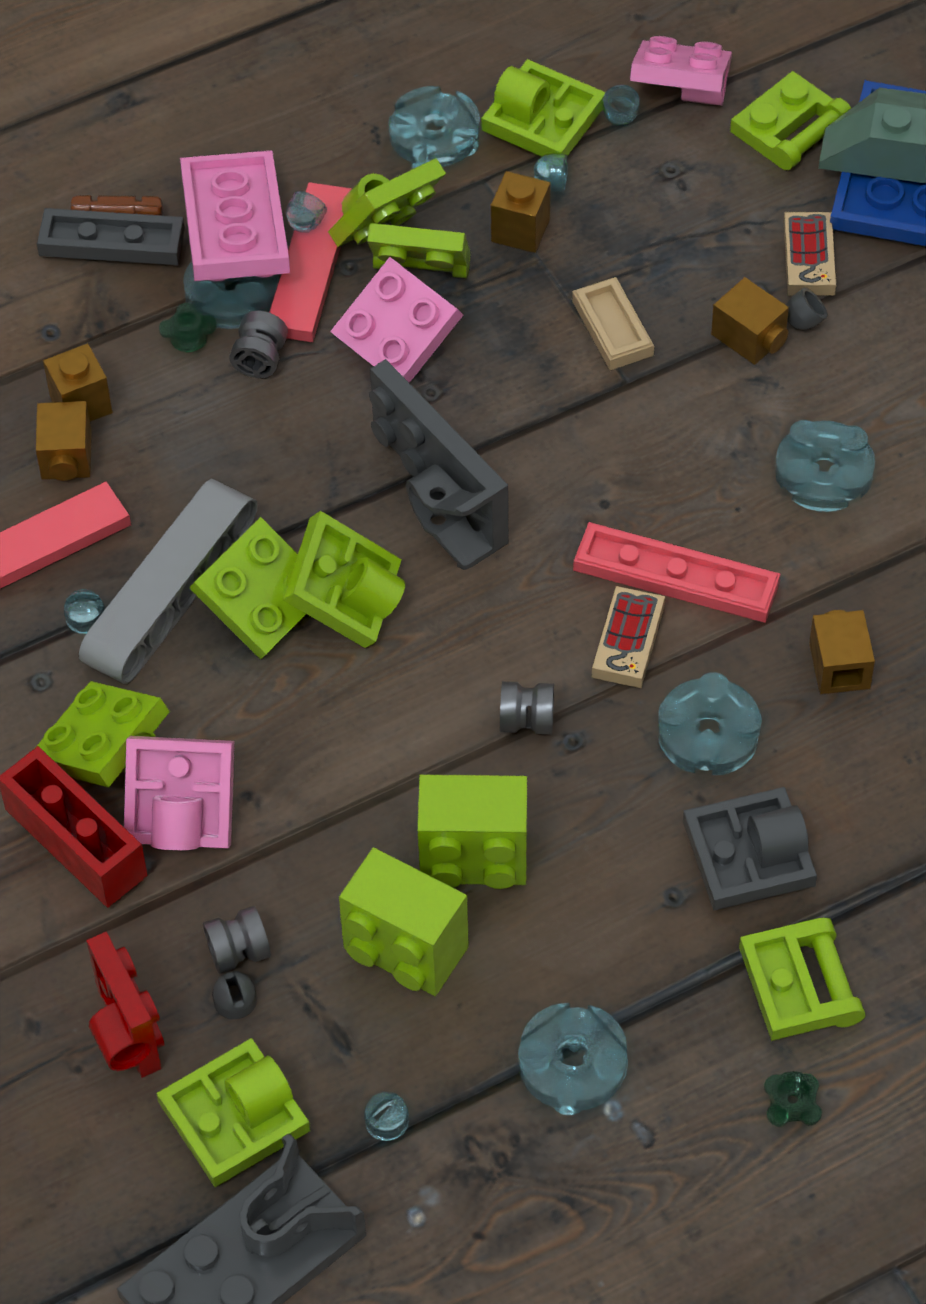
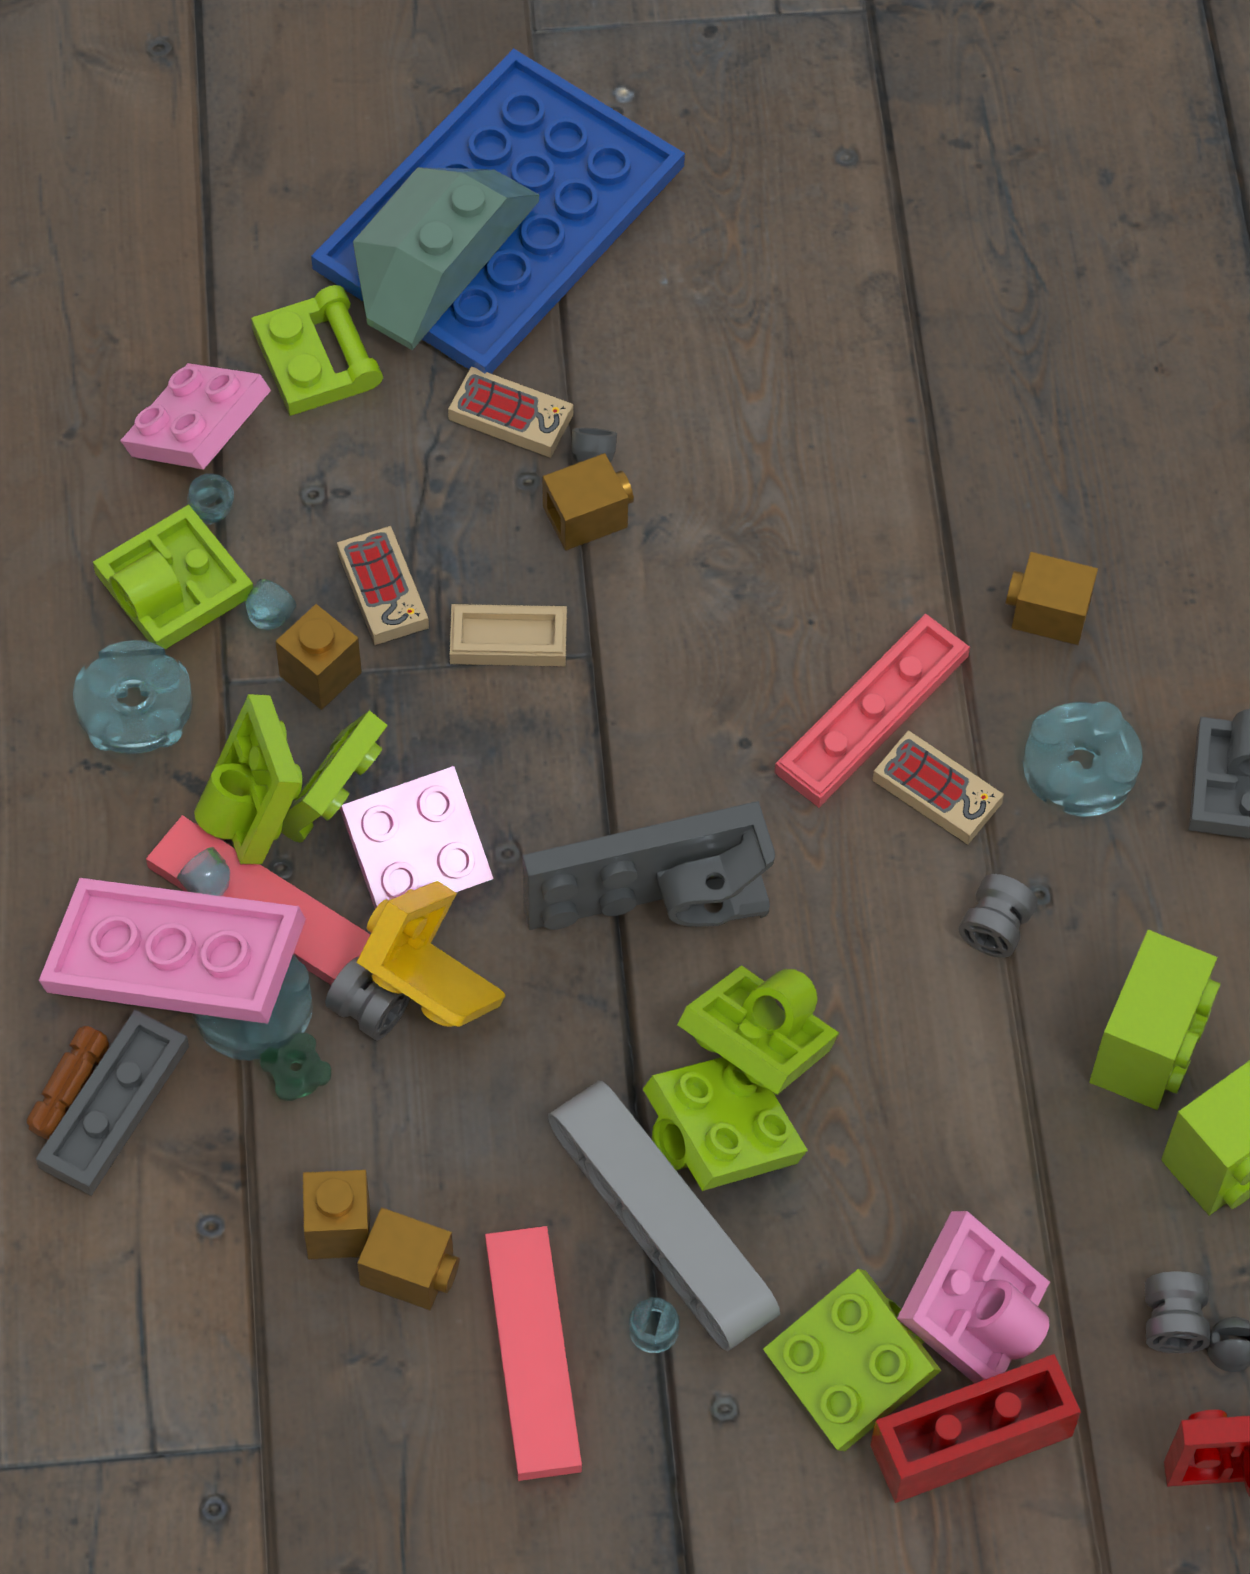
camera: 70 degrees left, 5 degrees up
(293, 355) = (408, 963): none -> yellow bracket
(611, 233) = (382, 585): none -> tile
(825, 441) = (803, 487): clear light blue plate -> none

